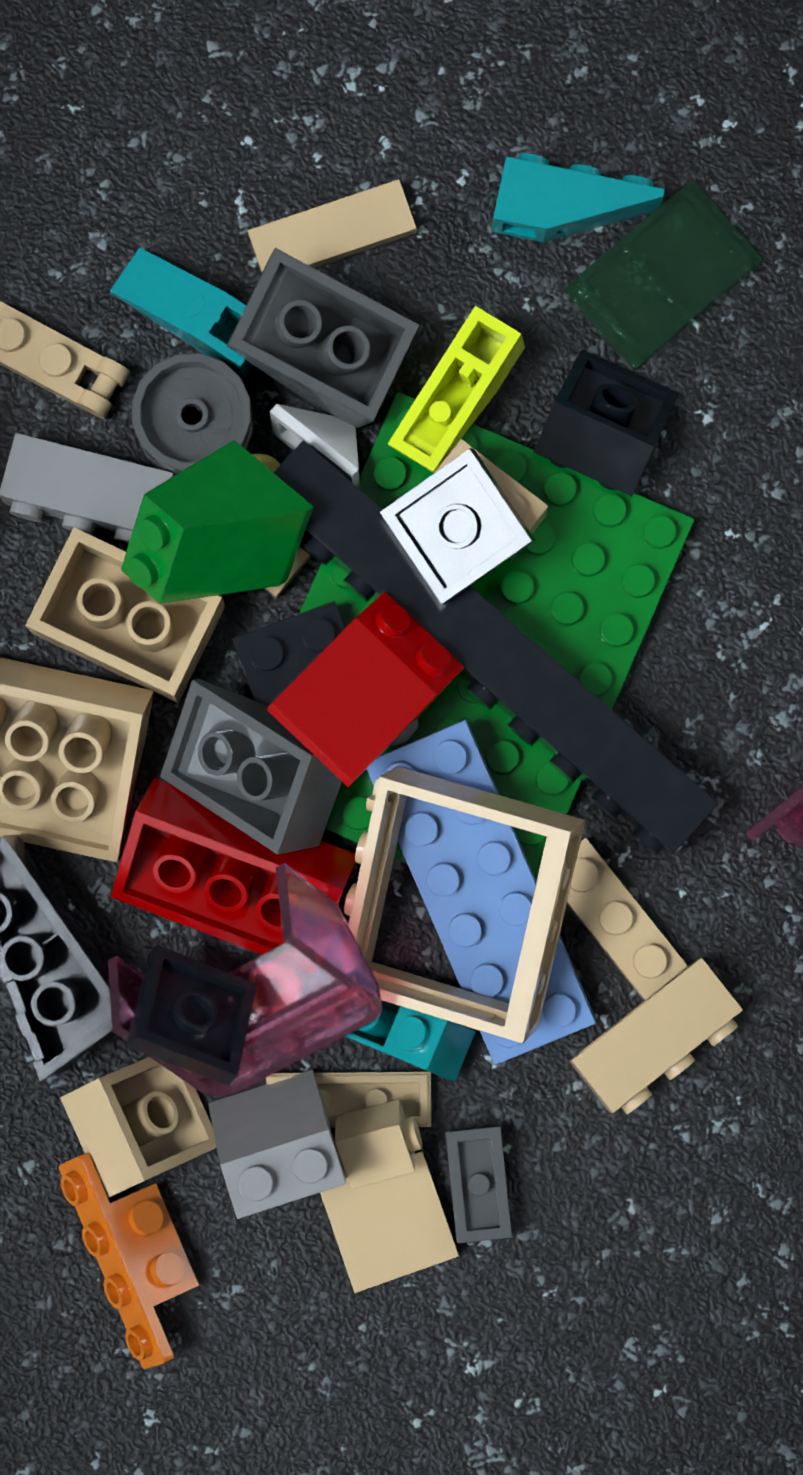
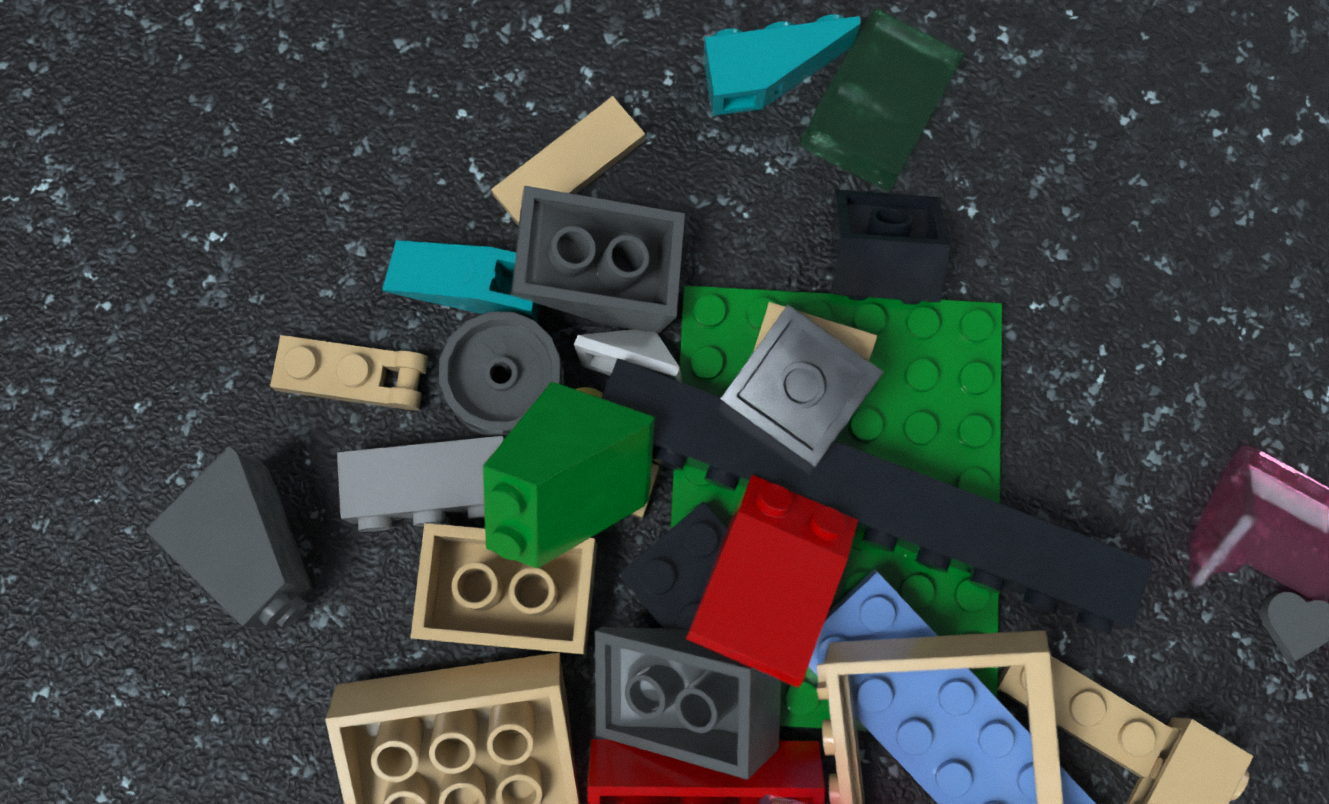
camera: 20 degrees left, 5 degrees down
(458, 389) = (742, 260): neon yellow slope -> none

